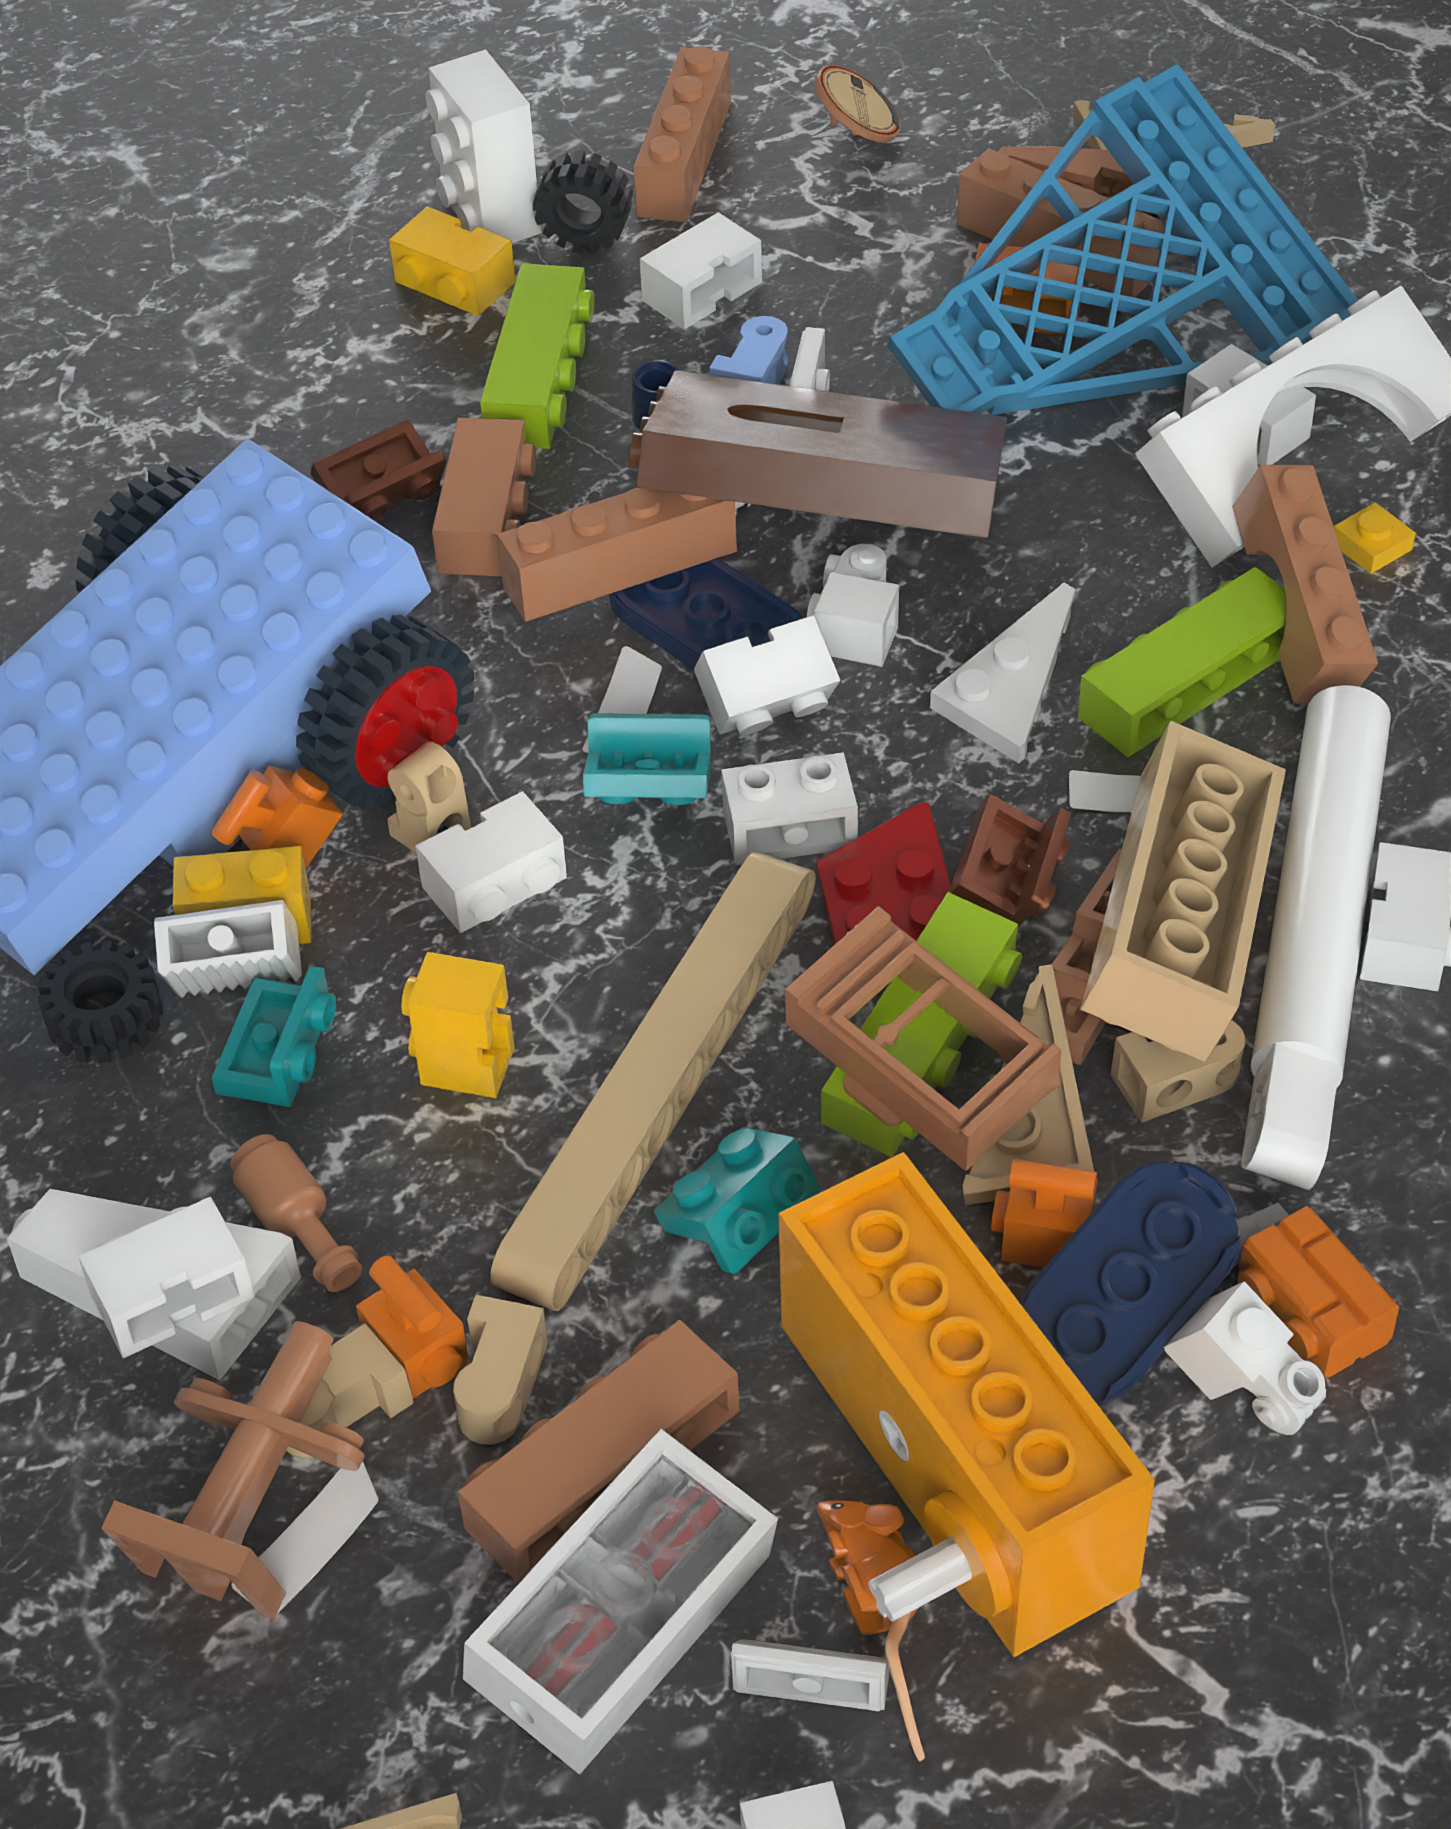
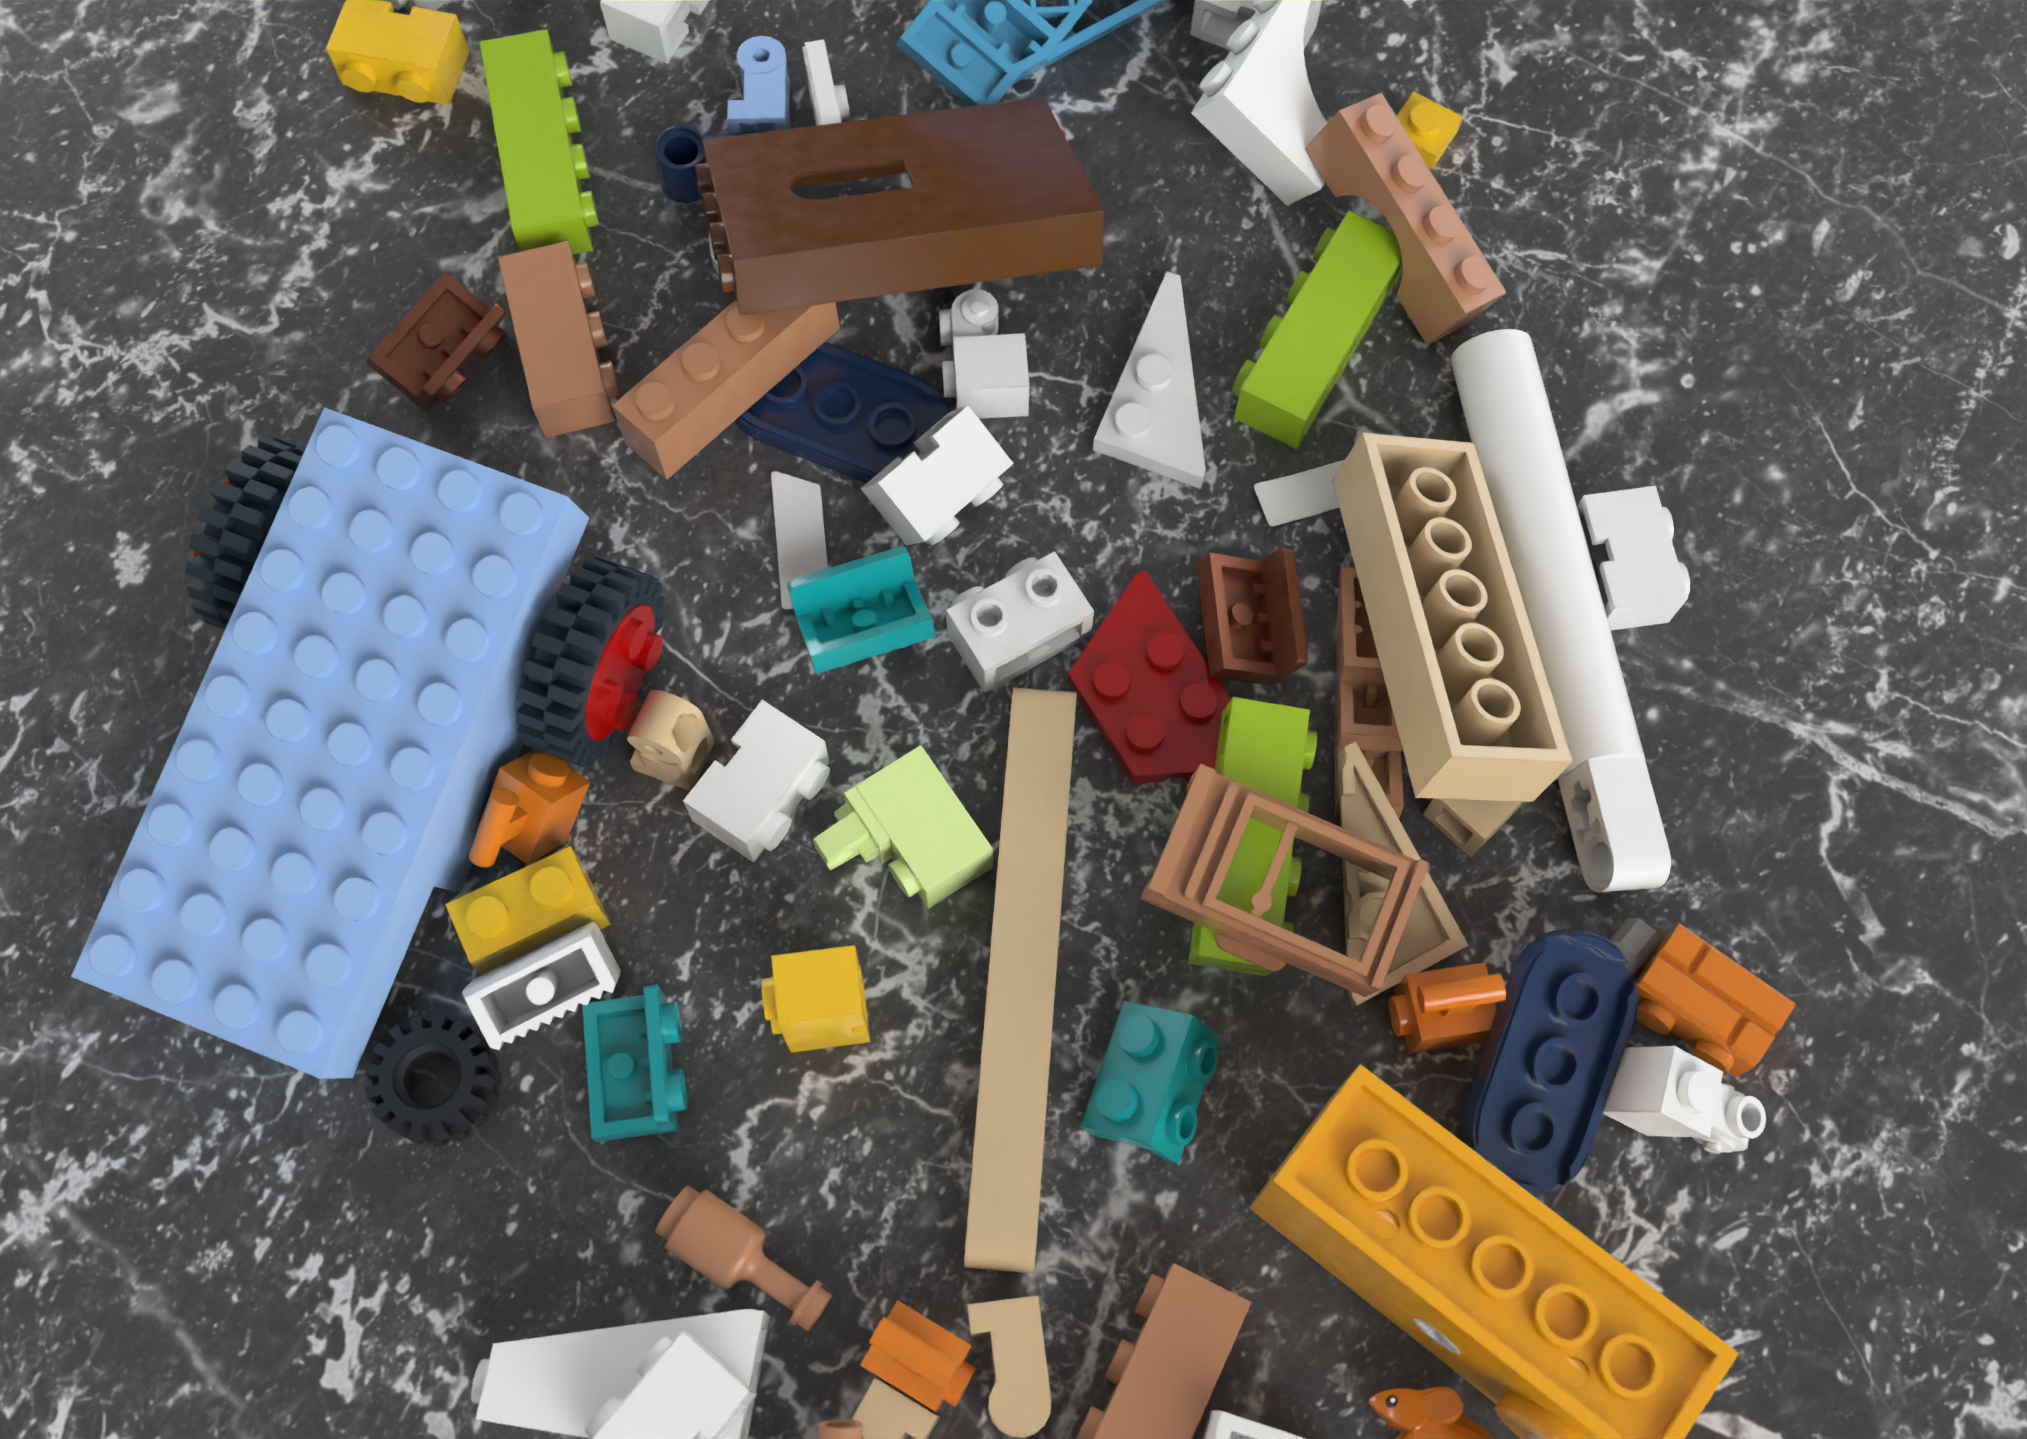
camera: 25 degrees left, 20 degrees up
(611, 929) = (917, 820): none -> yellowish green hinge

